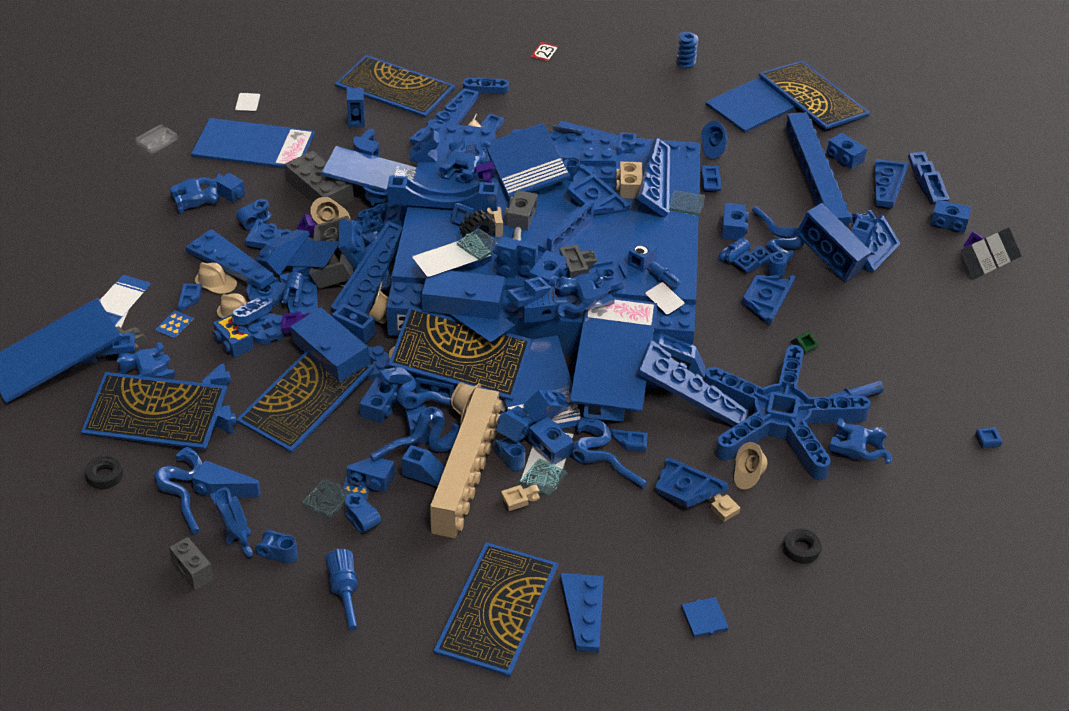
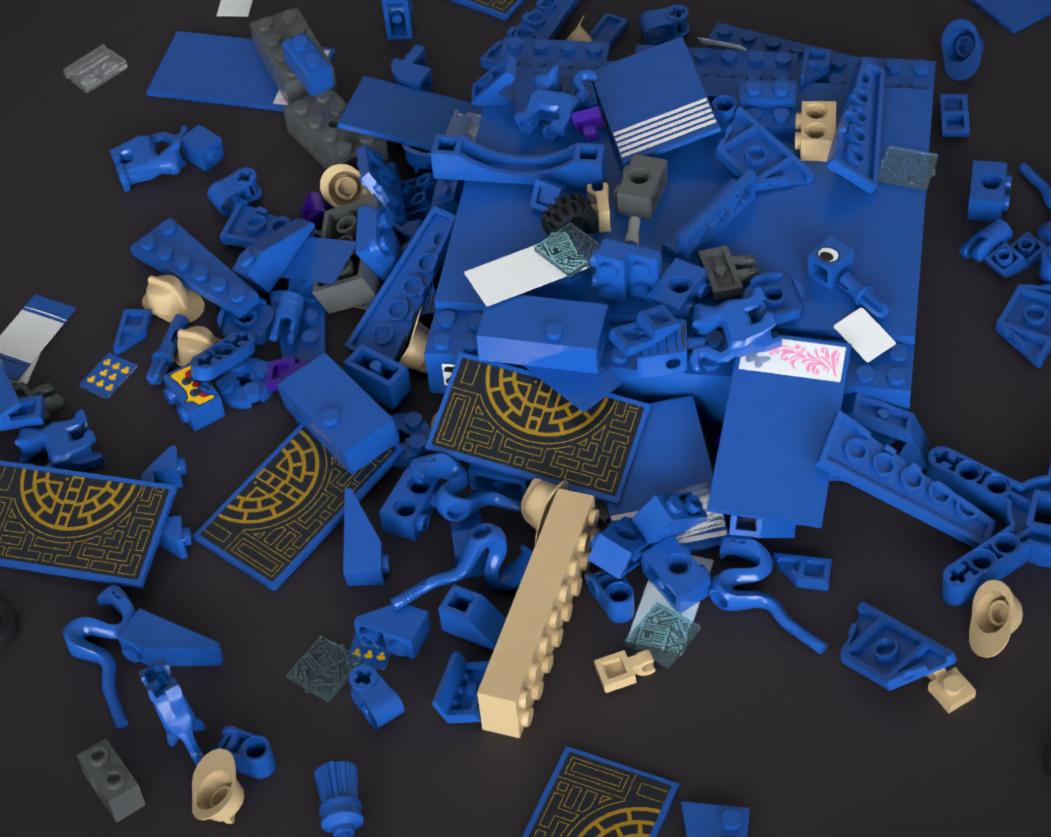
camera: 10 degrees right, 5 degrees up
(211, 313) = (163, 358): none -> blue axle
(261, 566) = (215, 788): none -> tan piece
(287, 132) = (268, 37): none -> dark grey brick
(301, 136) = (308, 64): none -> blue brick
(349, 425) = (363, 551): none -> blue slope
(351, 207) = (382, 182): none -> blue wing
(416, 509) = (457, 692): none -> blue bracket
(526, 119) = (663, 25): none -> blue piece

